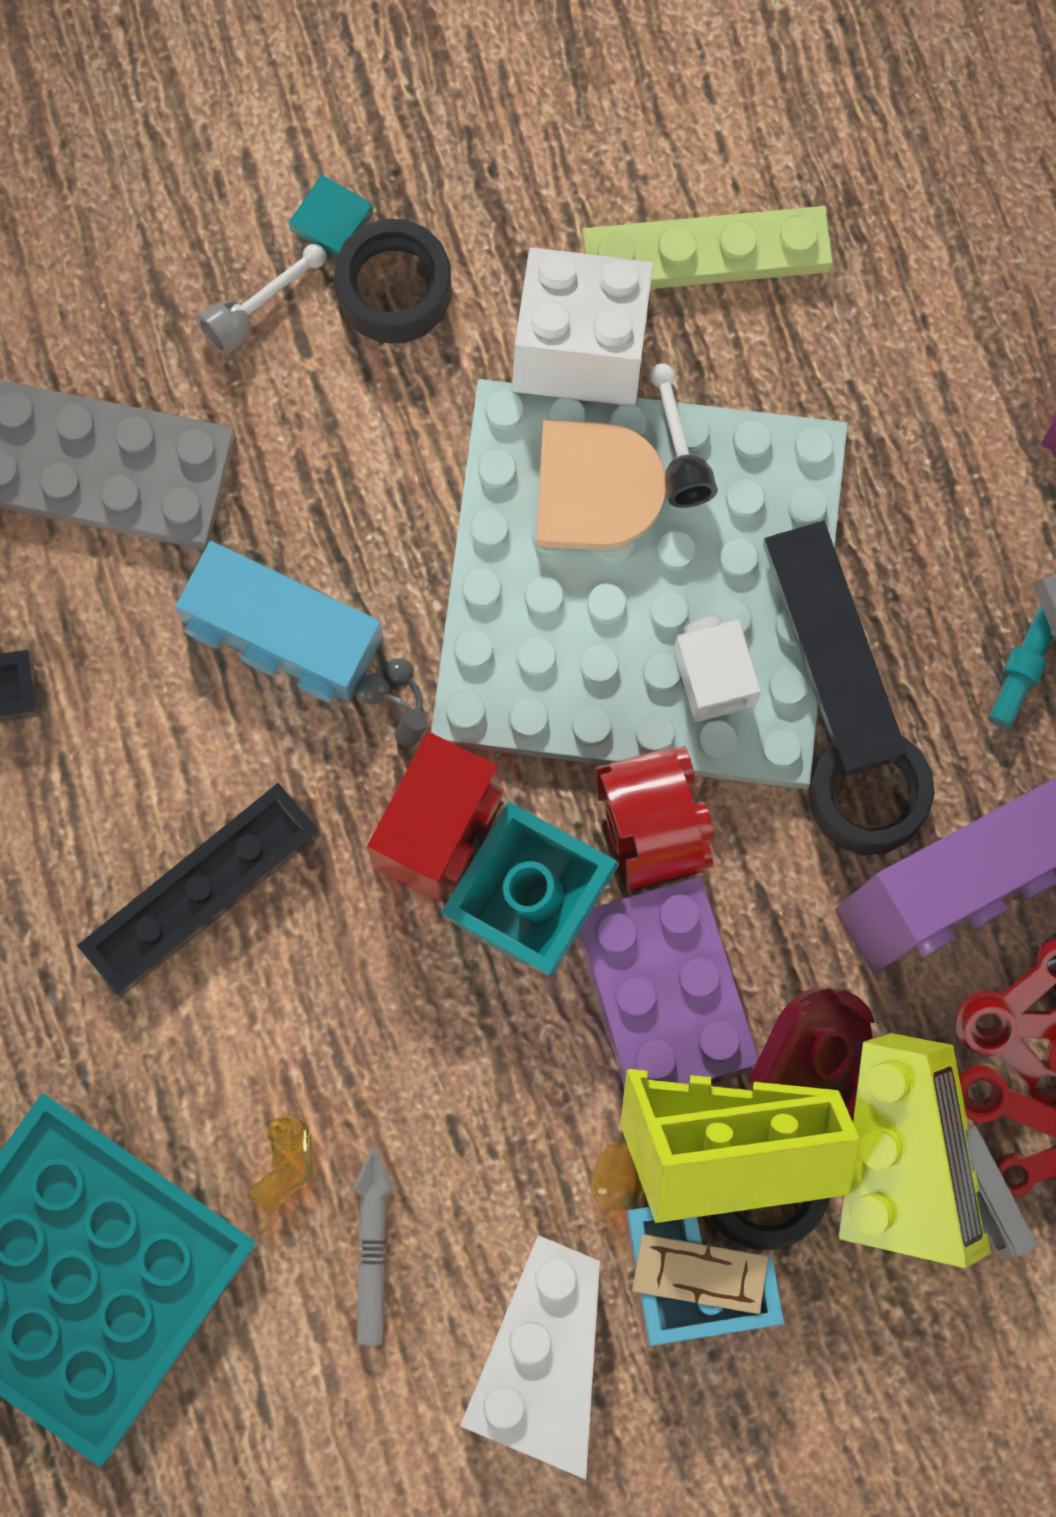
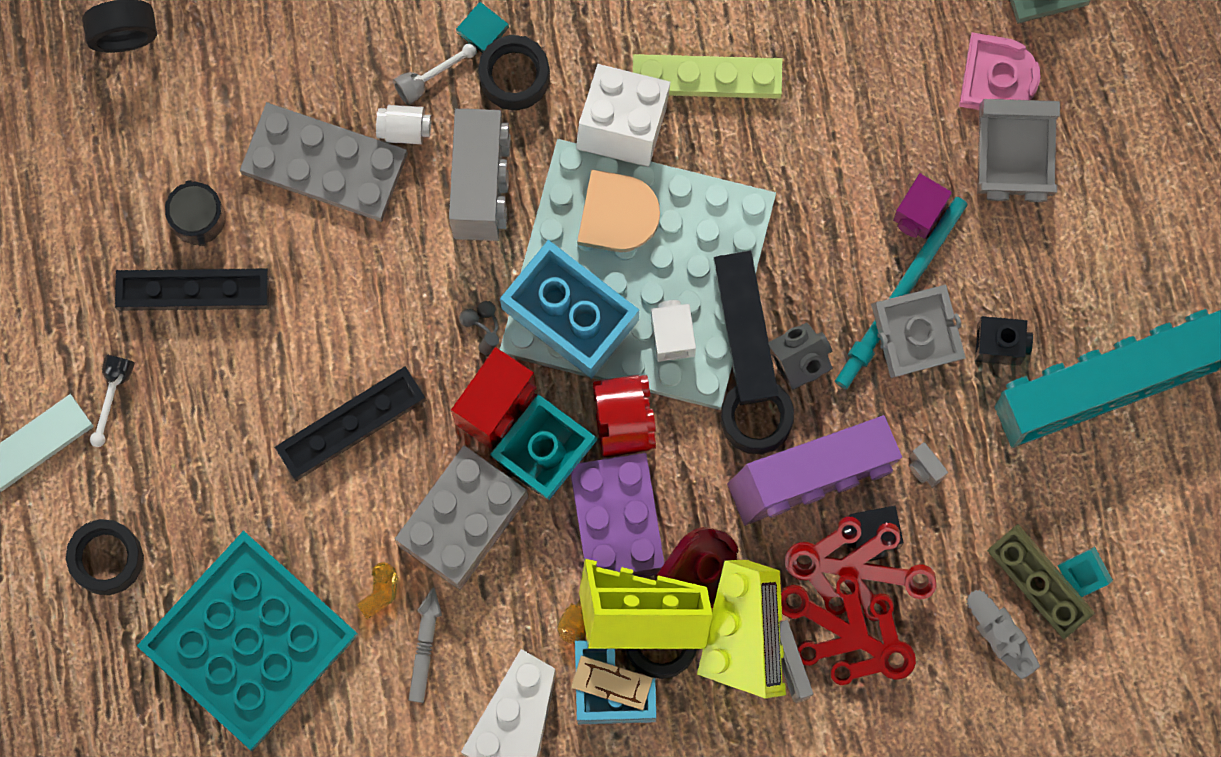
camera: 10 degrees right, 0 degrees up
(222, 386) = (403, 124): none -> white brick
(278, 623) = (418, 271): medium azure brick -> none
(359, 451) = (479, 174): none -> light grey brick
(406, 1023) = (461, 517): none -> light grey brick
(541, 652) = (569, 309): none -> medium azure brick
(688, 477) = (673, 214): black hinge -> none
(931, 682) = (801, 355): none -> dark grey brick

